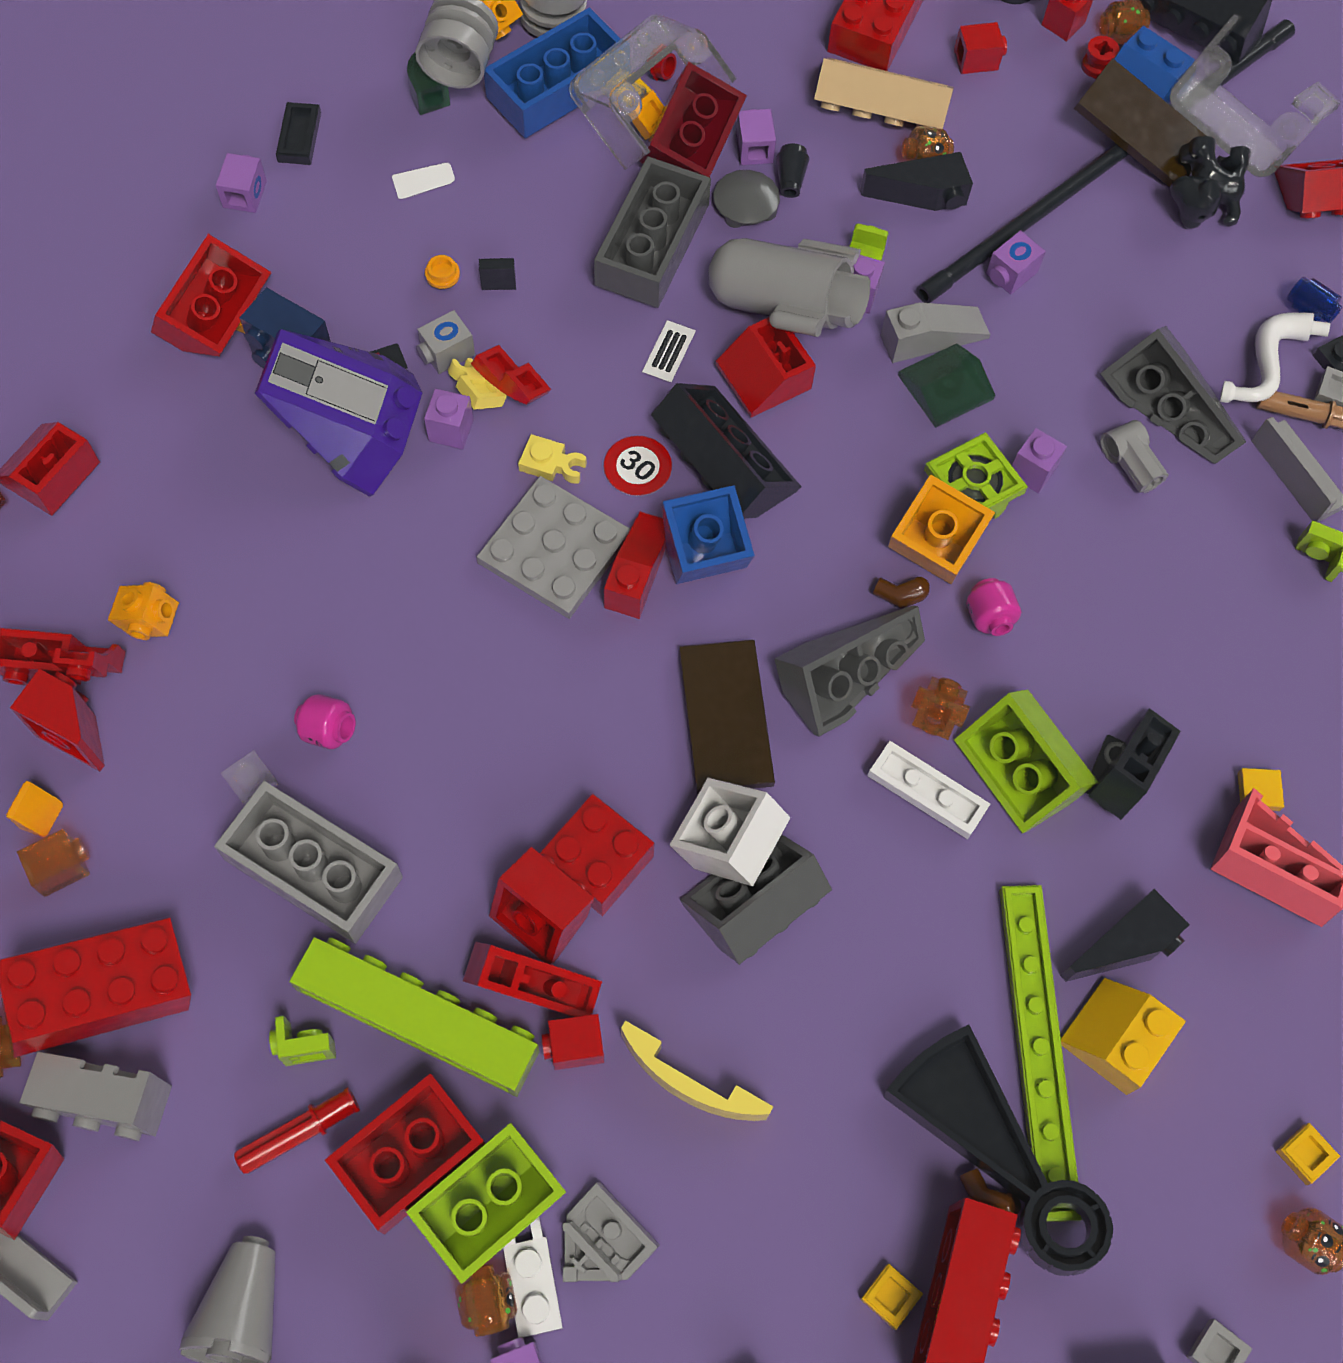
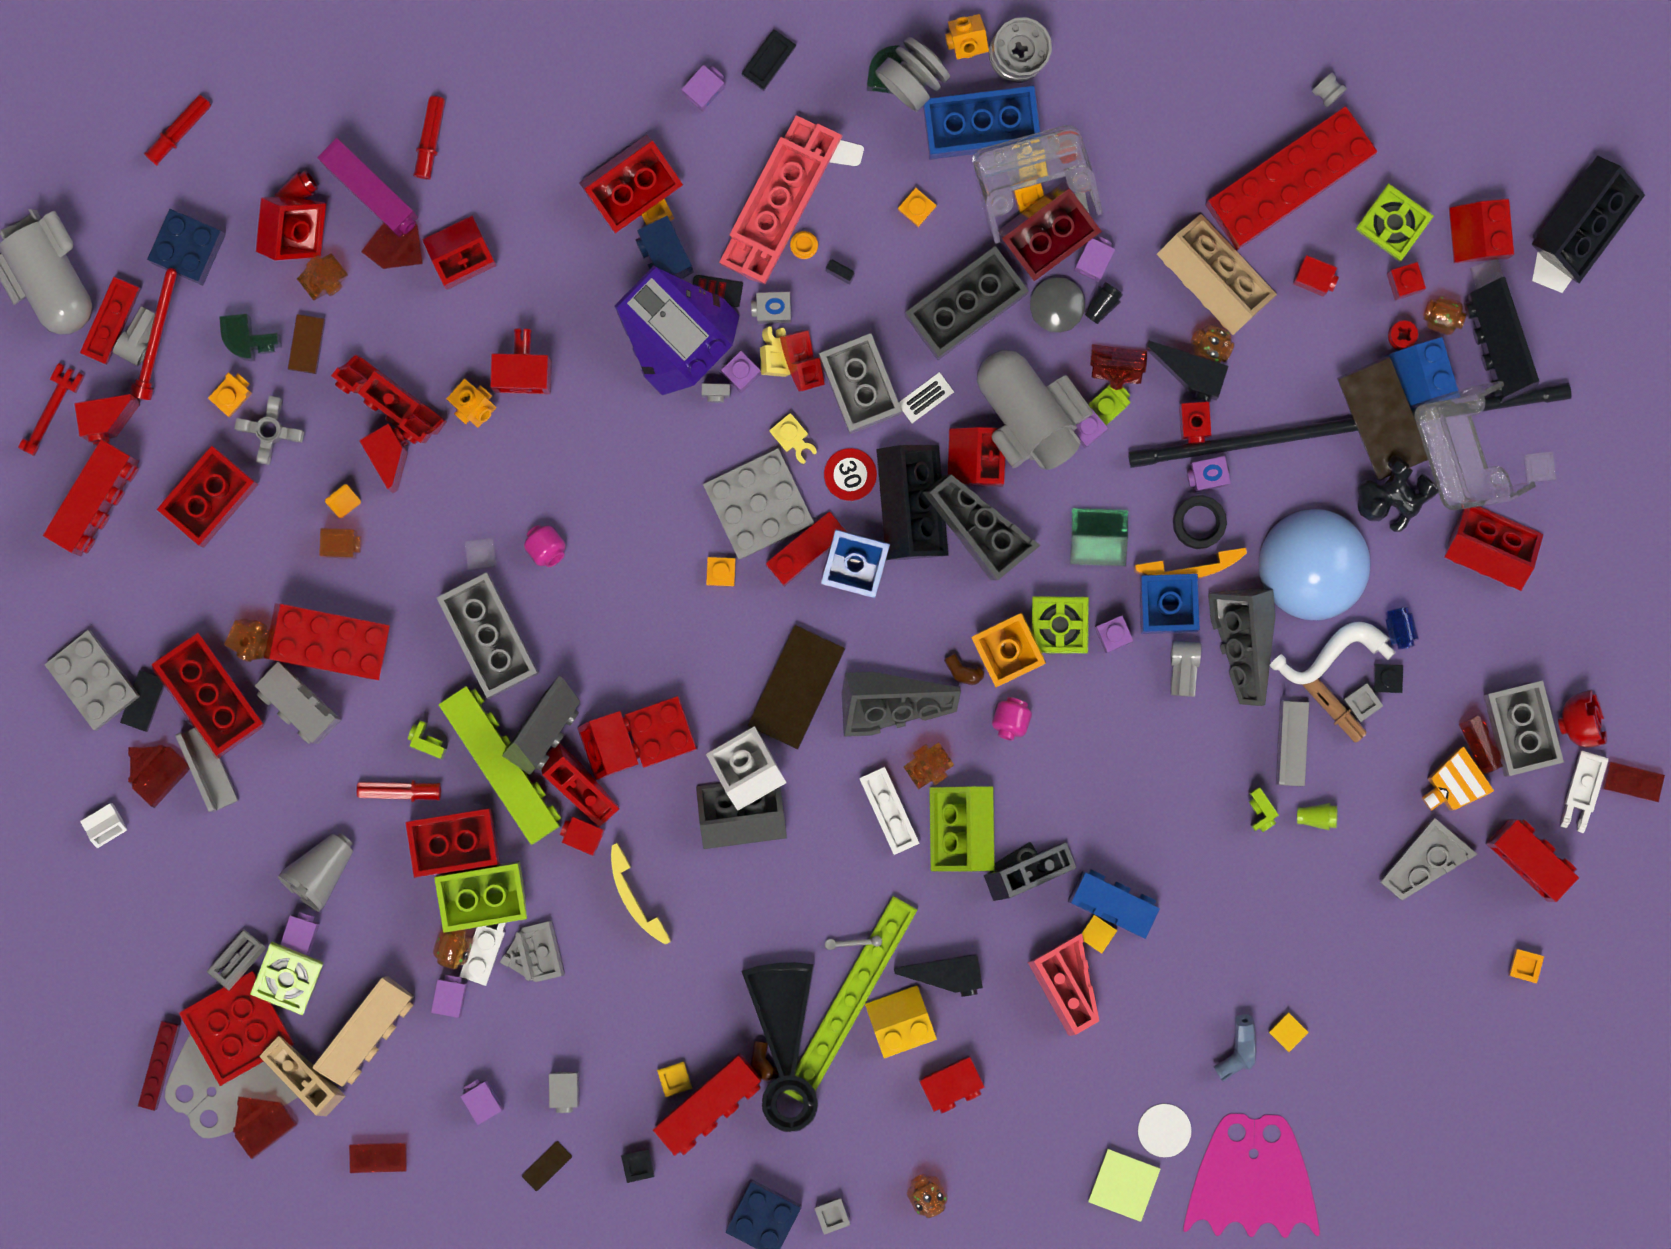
camera: 35 degrees right, 20 degrees up
(185, 541) = (521, 371): none -> red brick
(387, 239) = (779, 199): none -> coral slope
(432, 453) = (716, 392): none -> light grey plate
(443, 928) = (543, 727): none -> dark grey slope
(540, 184) = (917, 207): none -> light orange plate
(556, 640) = (721, 571): none -> light orange plate
(590, 360) = (860, 383): none -> light grey brick
(817, 426) = (980, 528): none -> dark grey wedge
(848, 212) = (1118, 365): none -> clear red slope
(930, 328) = (1117, 492): light grey slope -> none
(964, 220) = (1195, 421): none -> red brick
(969, 992) = (831, 944): none -> light grey hinge
(1037, 378) = (1224, 560): none -> light orange slope
(1047, 292) = (1215, 507): none -> black tyre
(1074, 396) = (1169, 604): none -> blue slope
(1187, 283) = (1314, 564): none -> light blue piece
(1237, 1073) = (952, 1084): none -> red brick
(1255, 739) = (1114, 903): none -> blue wedge
(1307, 1154) = (962, 1150): yellow tile -> none

